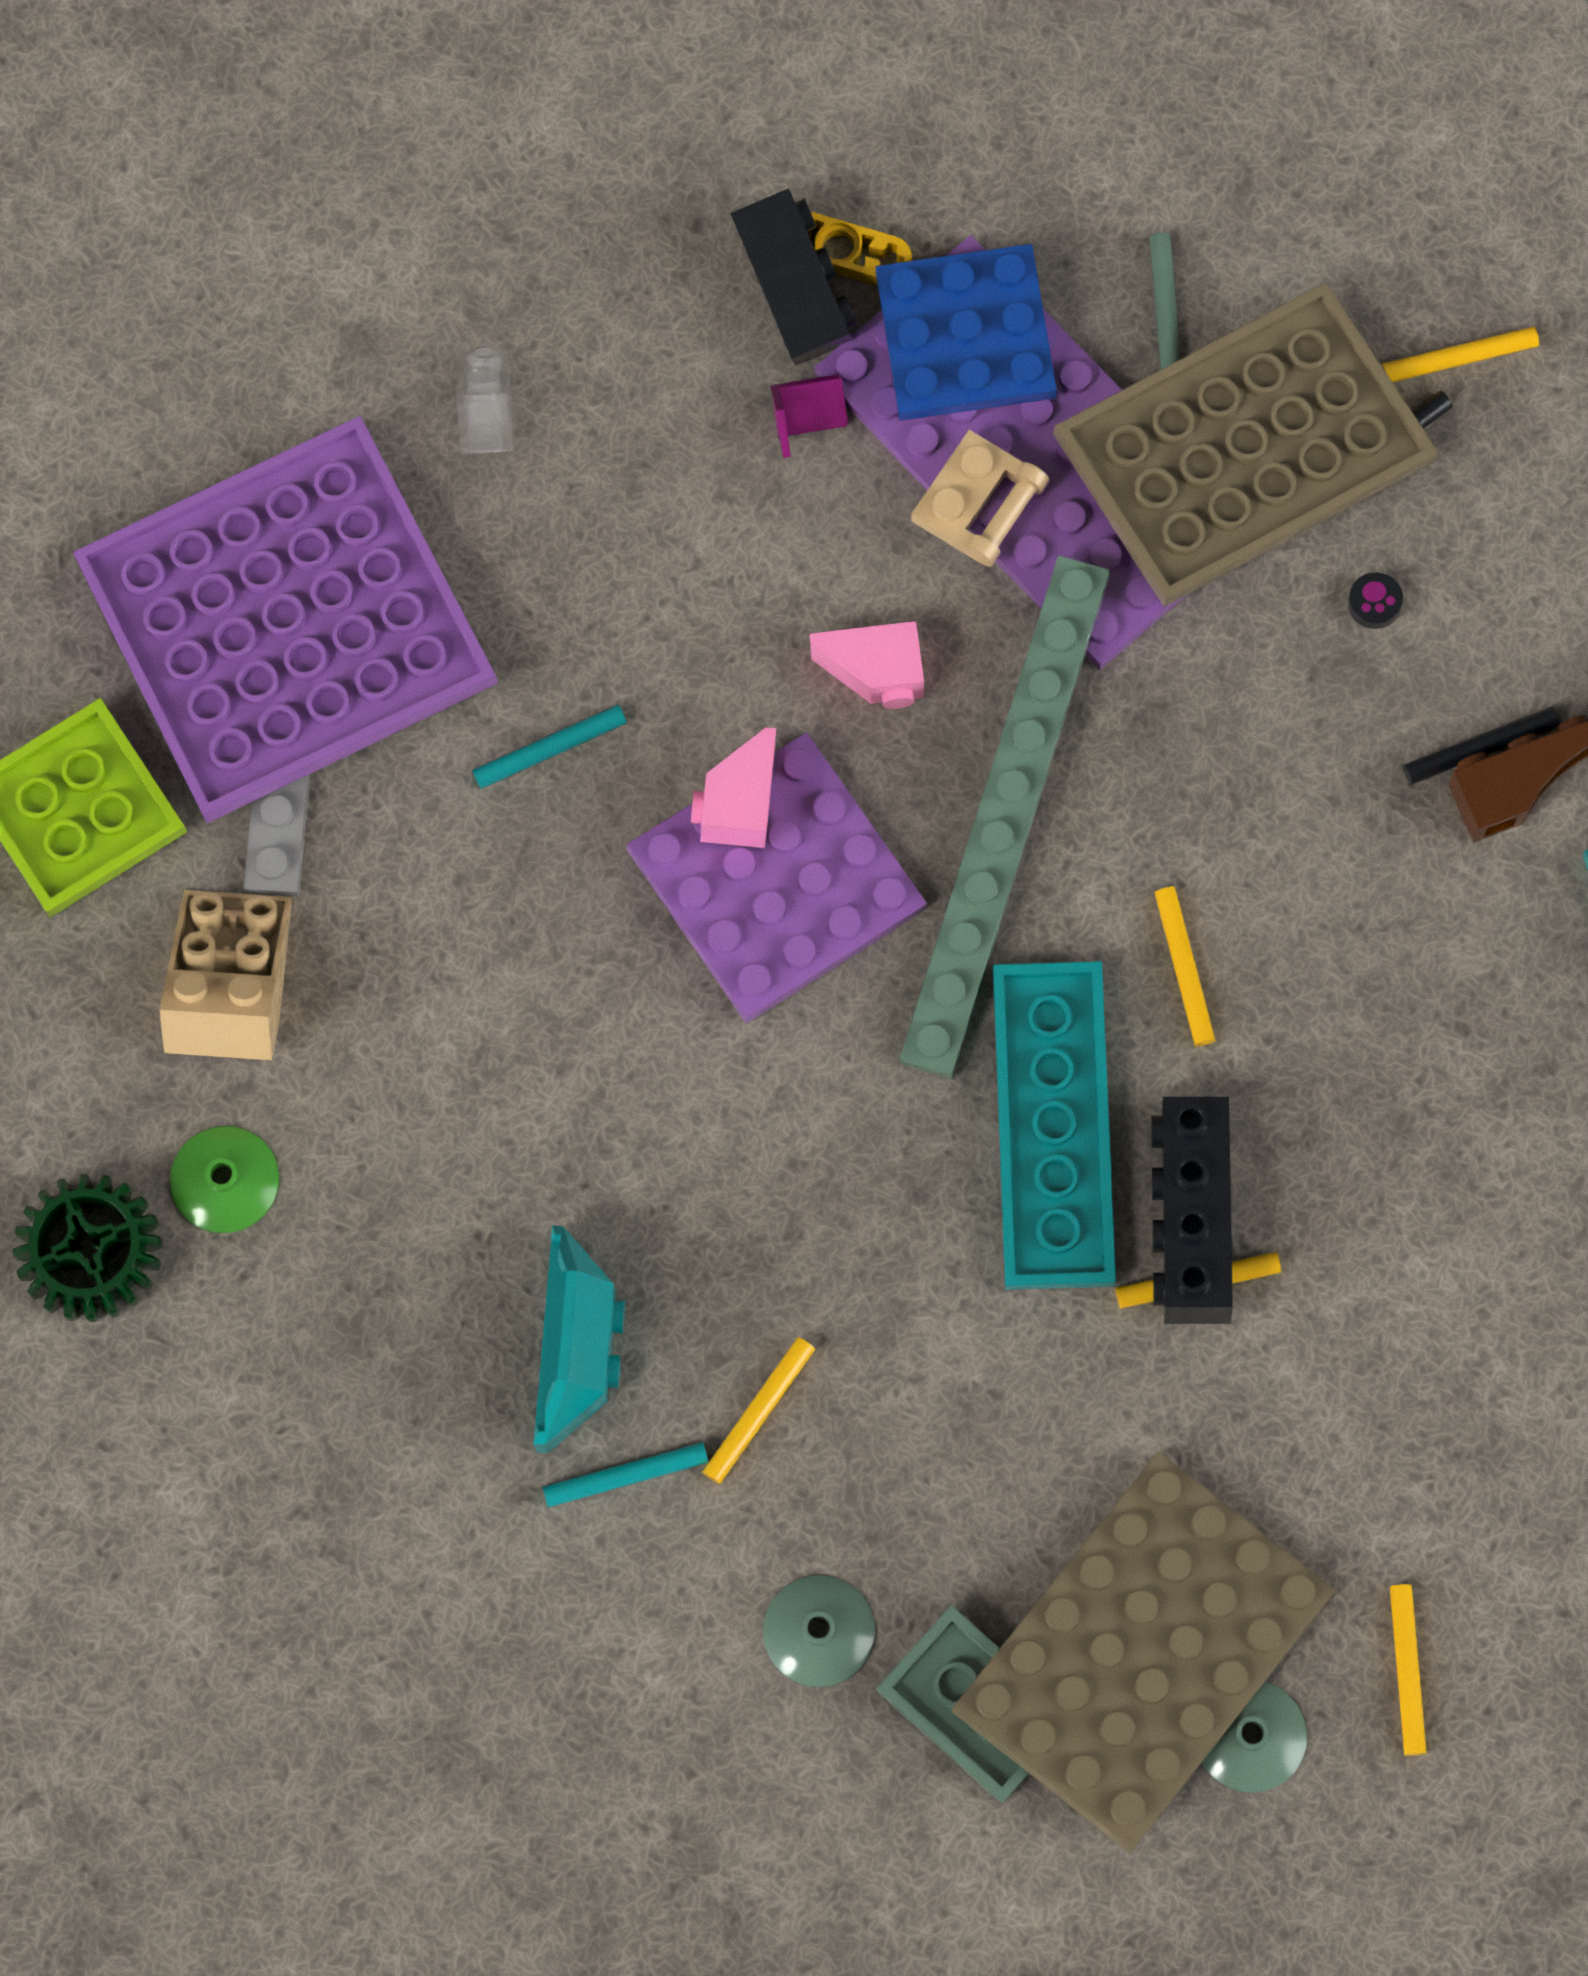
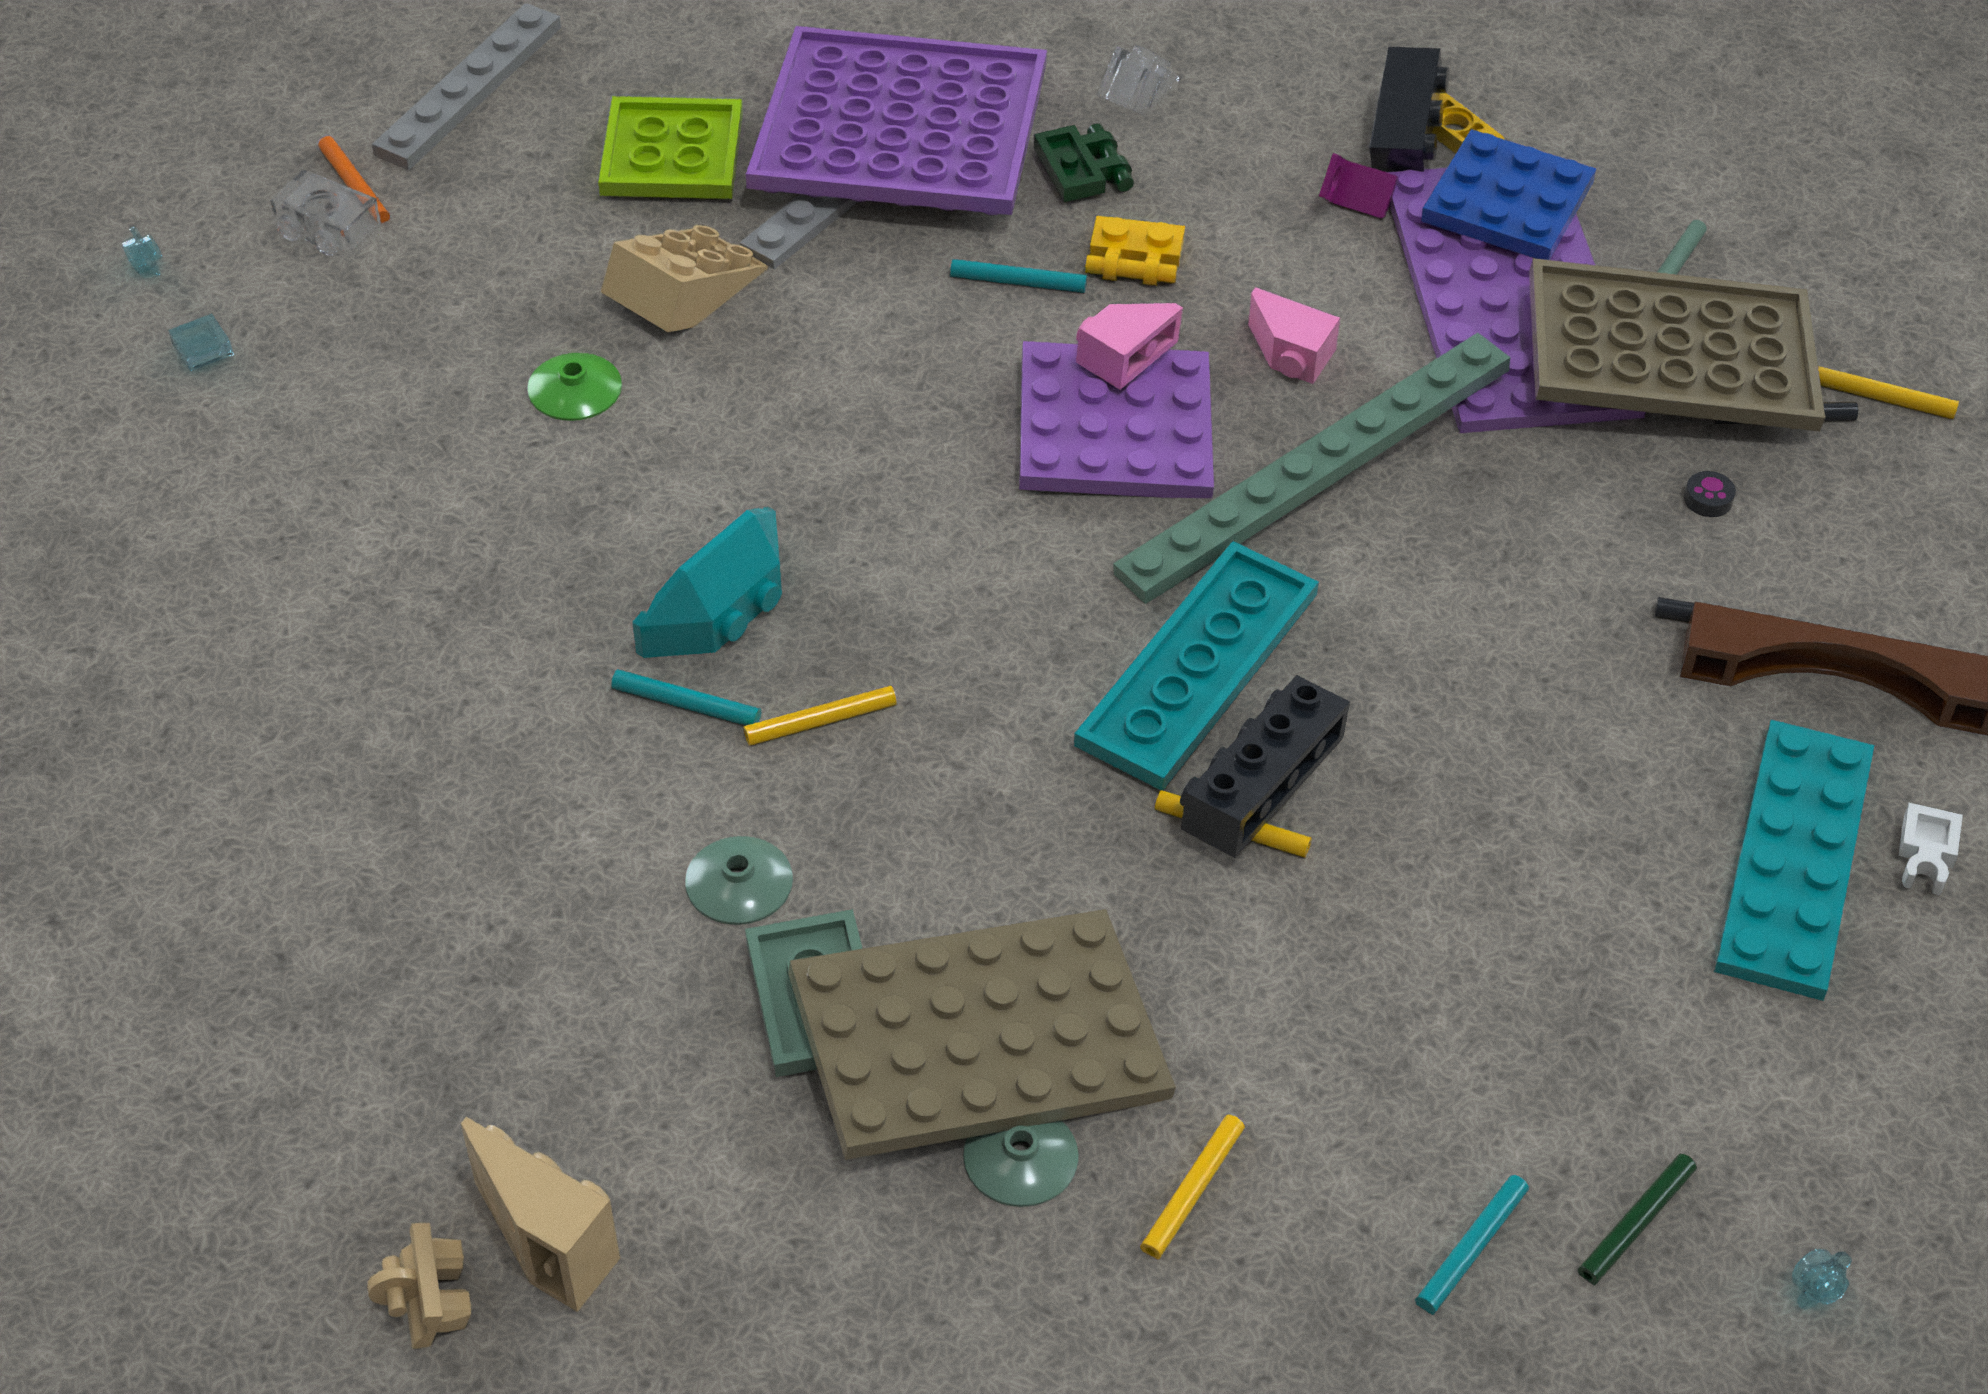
camera: 30 degrees right, 25 degrees down
(110, 1238) = (444, 363): dark green gear -> none
(495, 560) = (1073, 168): none -> dark green plate
(633, 623) = (1135, 250): none -> yellow plate
(965, 489) = (1443, 279): tan plate -> none
(1184, 966) = (1383, 628): yellow piece -> none

